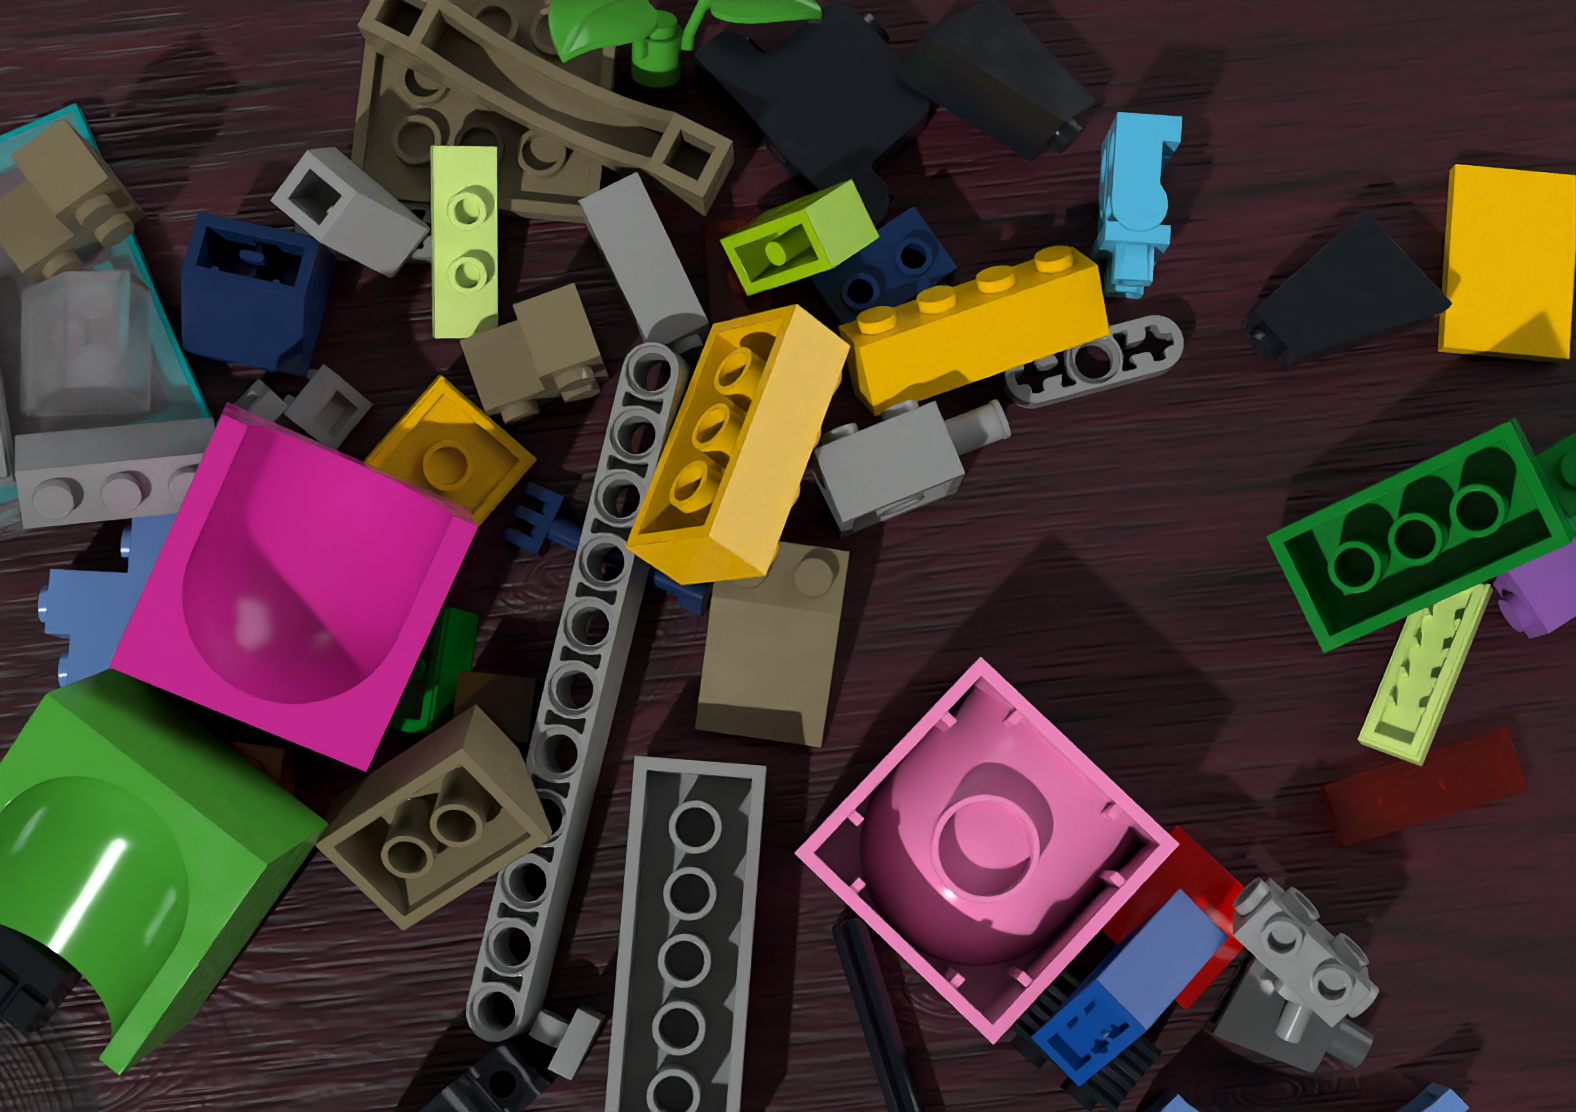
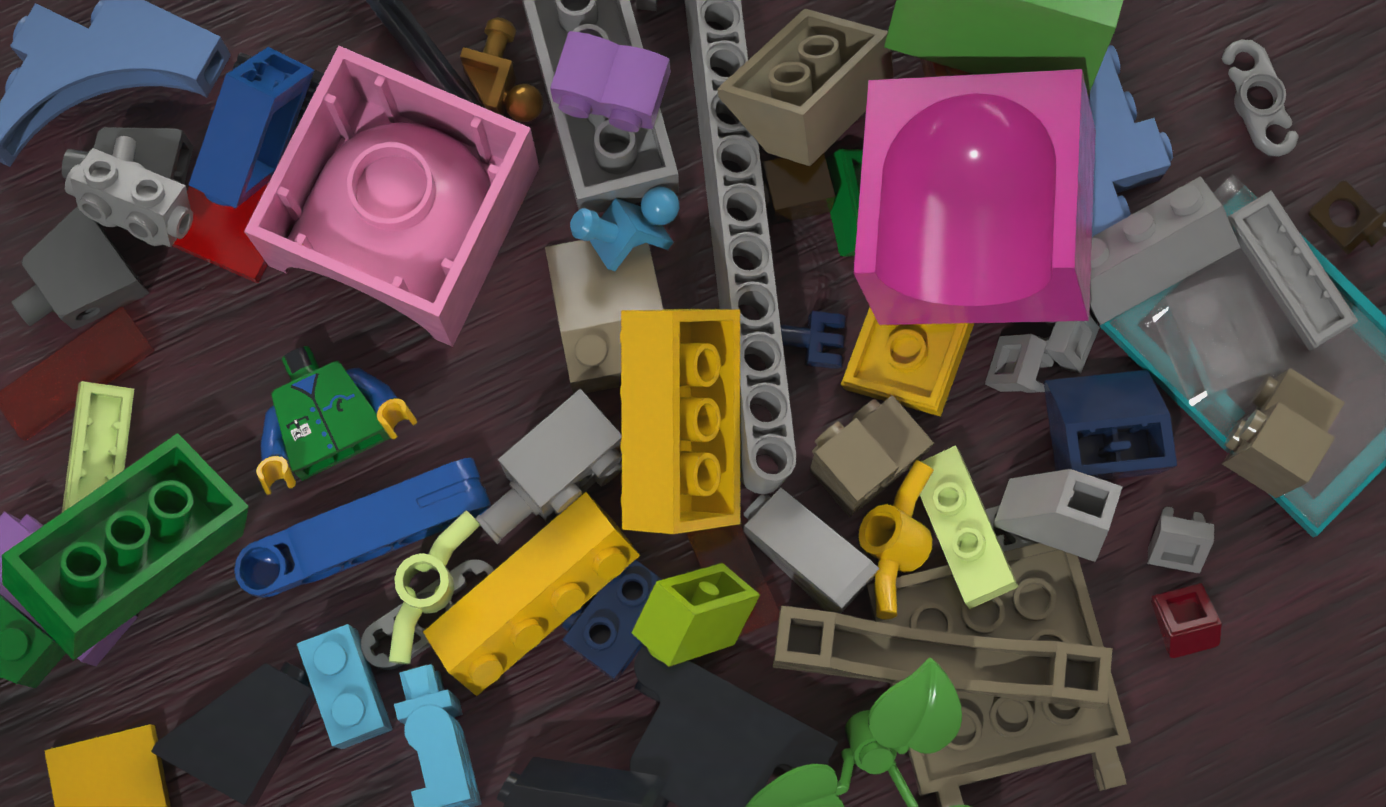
camera: 160 degrees right, 5 degrees down
(229, 144) = (1181, 542): none -> light grey tile
(258, 69) = (1187, 620): none -> dark red slope
(525, 246) = (896, 538): none -> yellow piece
(676, 889) = (610, 81): none -> medium lavender brick
(715, 724) = (627, 225): none -> dark azure piece
(812, 974) = (495, 76): none -> pearl gold piece
(1109, 361) = (412, 607): none -> yellowish green piece
(1139, 479) = (362, 529): none -> blue piece
(1146, 621) = (324, 418): none -> torso
(1215, 307) = (344, 687): none -> medium azure brick
(1390, 900) = (77, 275): none -> dark grey torso

